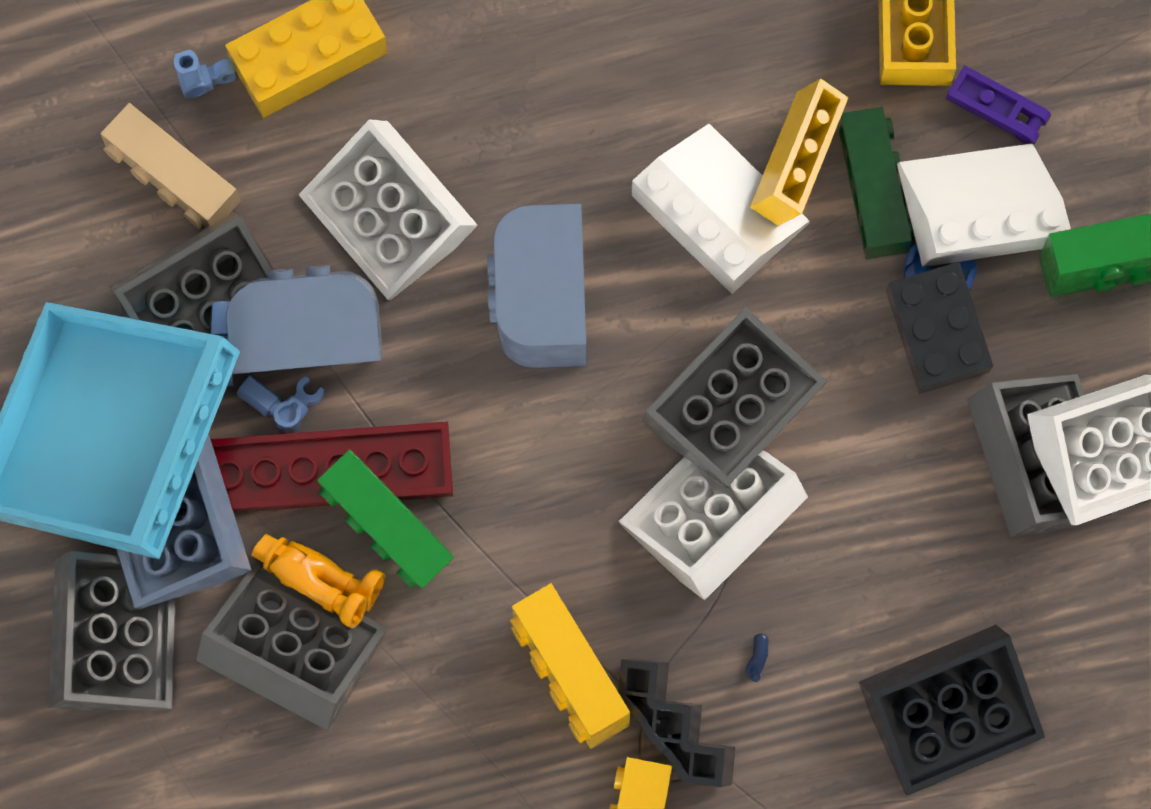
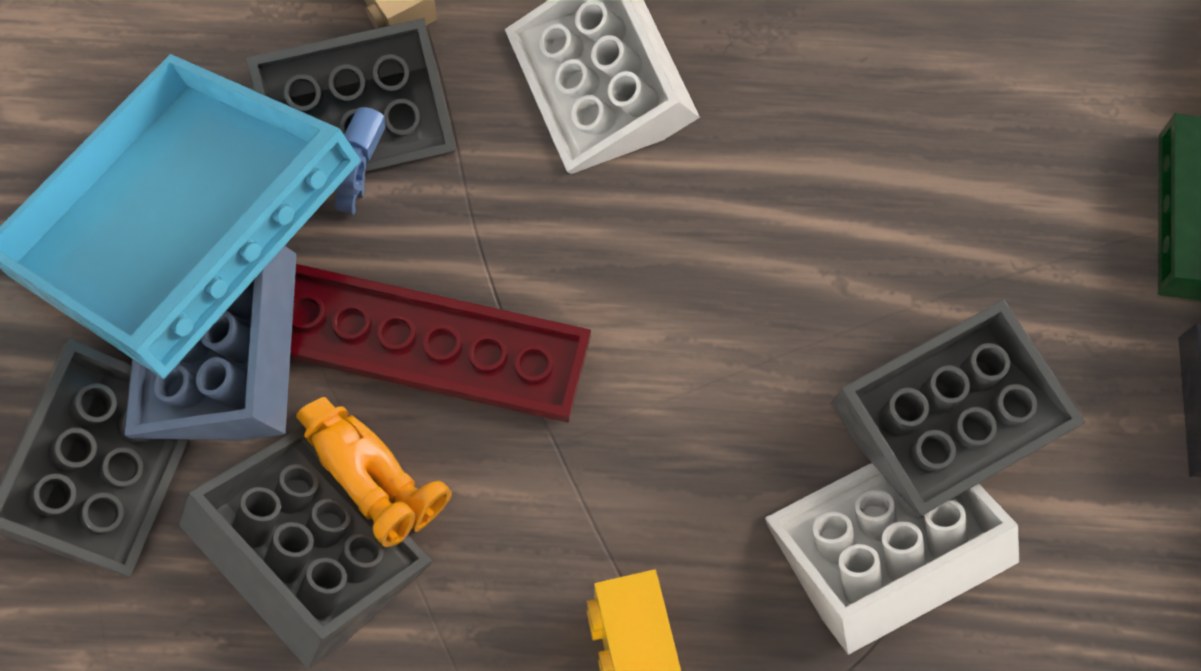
camera: 15 degrees right, 5 degrees down
(286, 414) = (401, 264): medium blue bar -> none
(304, 321) = (454, 155): sand blue brick -> none
(385, 519) = (473, 423): green brick -> none
(539, 286) = (753, 203): sand blue brick -> none
(704, 201) = (991, 182): white slope -> none
(799, 152) = (1113, 143): yellow brick -> none

